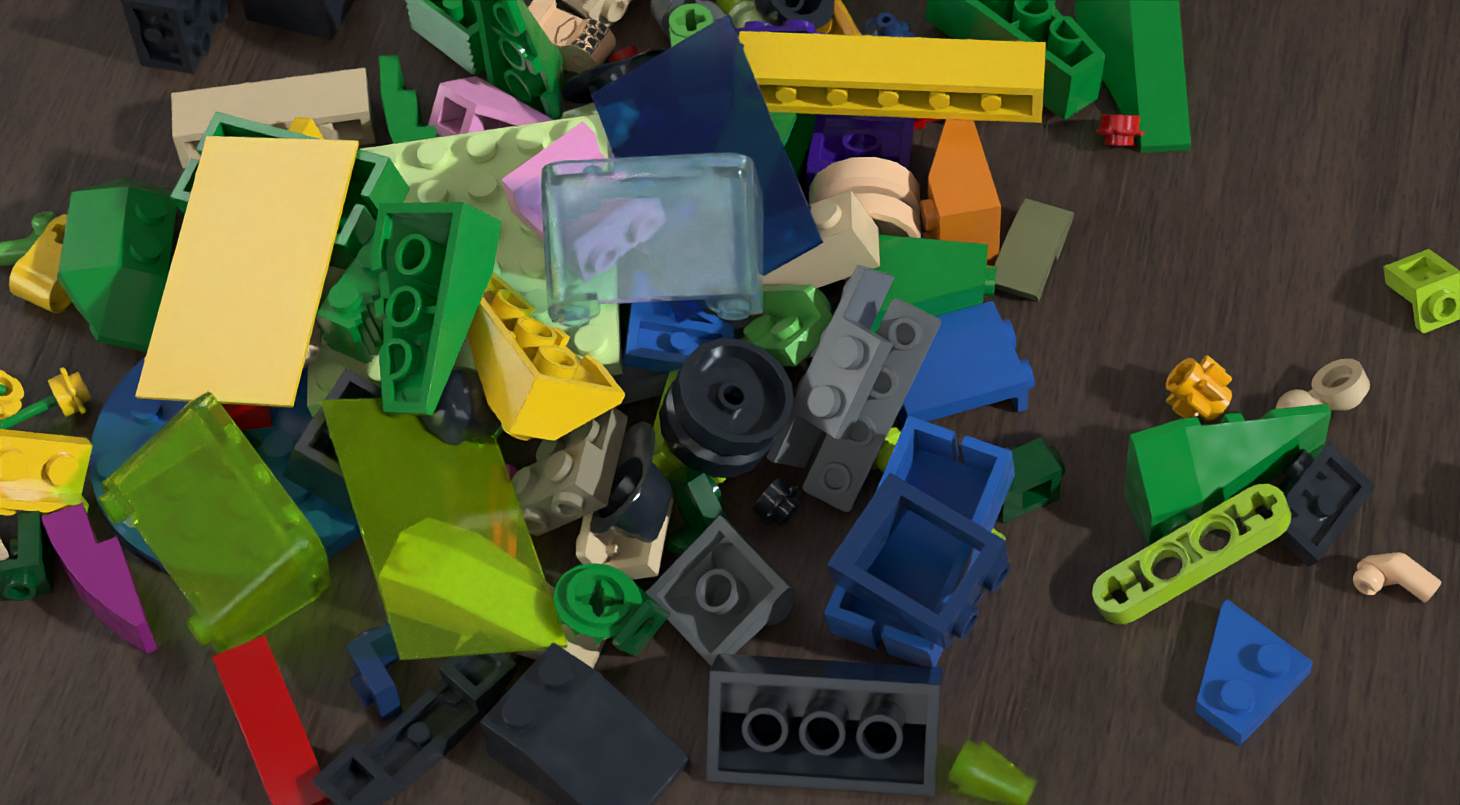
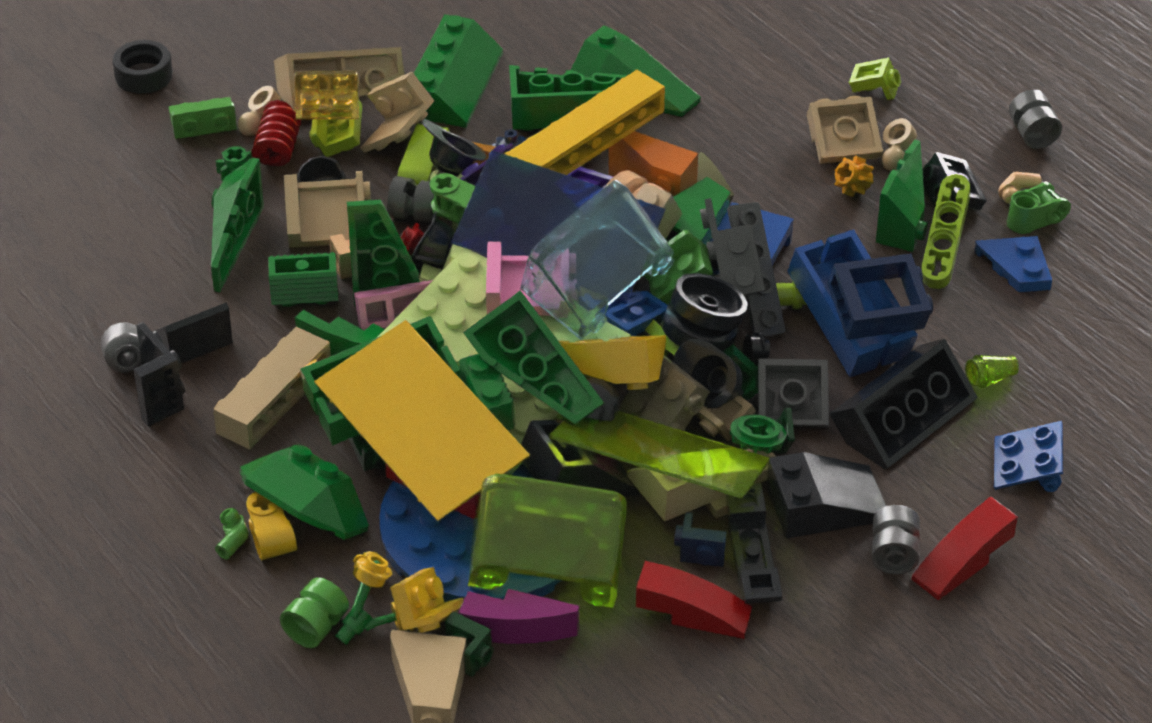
camera: 55 degrees left, 10 degrees down
(1119, 129) = (670, 110): red plate -> none
(1279, 321) = (844, 129): none -> tan plate
(1368, 626) = (1036, 208): none -> bright green piece

